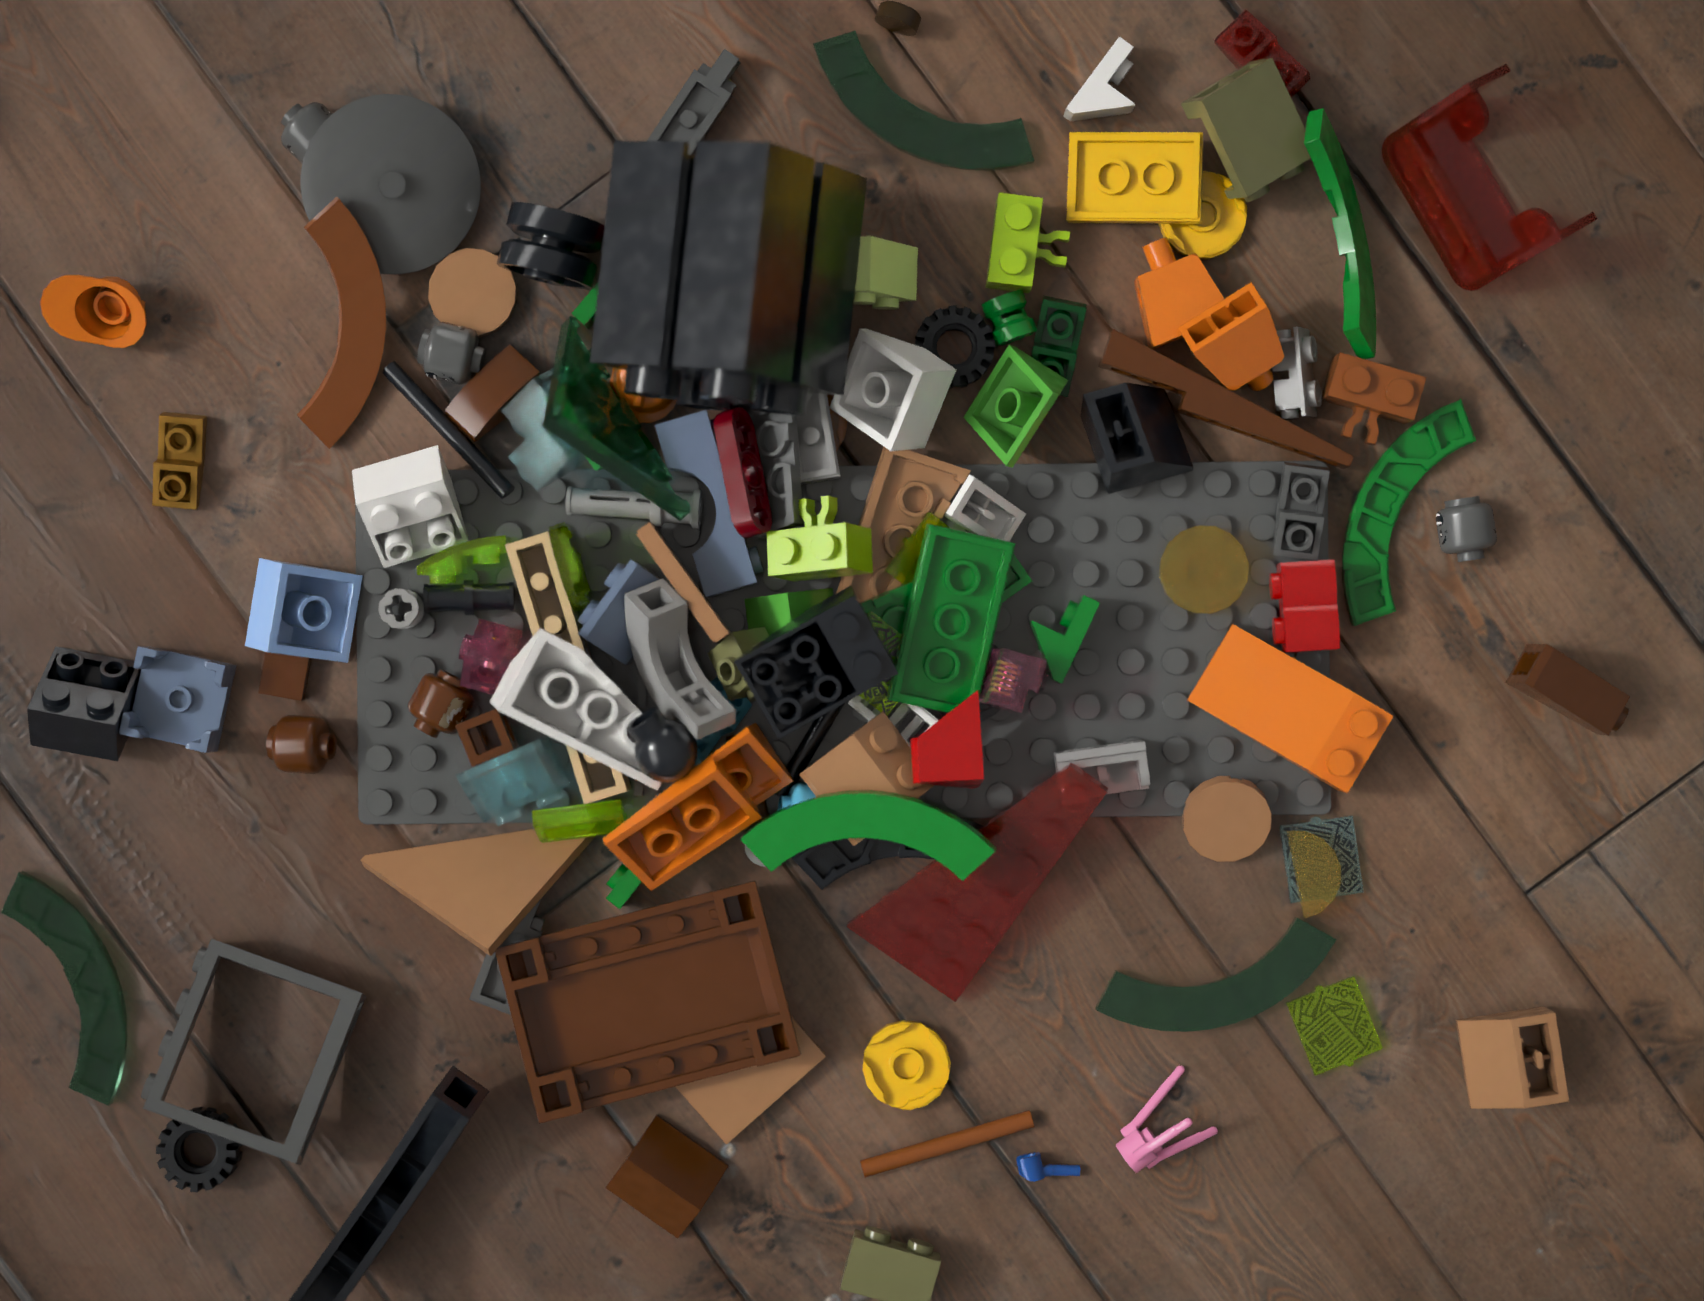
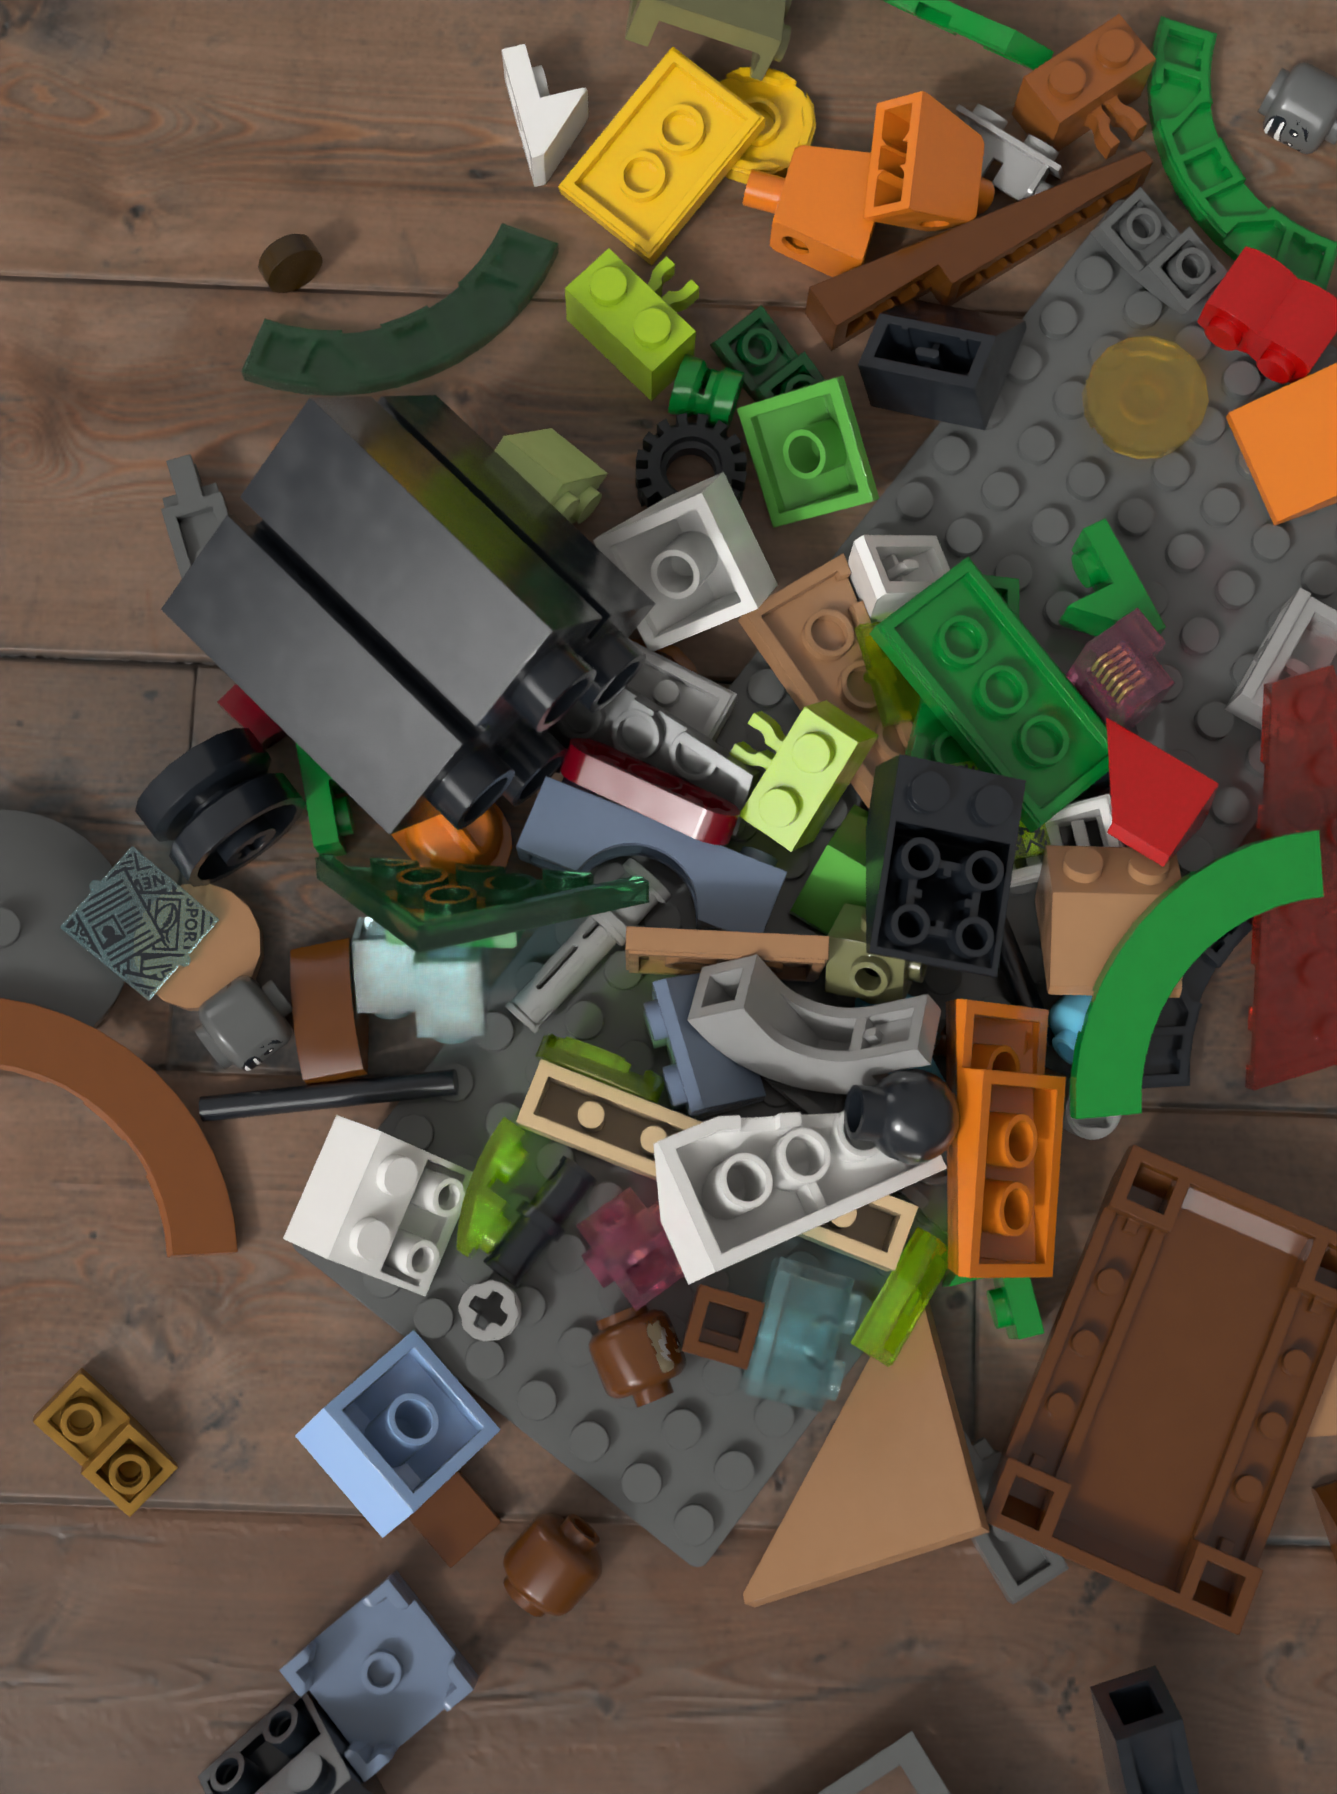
camera: 55 degrees left, 10 degrees down
(456, 253) = (139, 923): none -> clear light blue piece

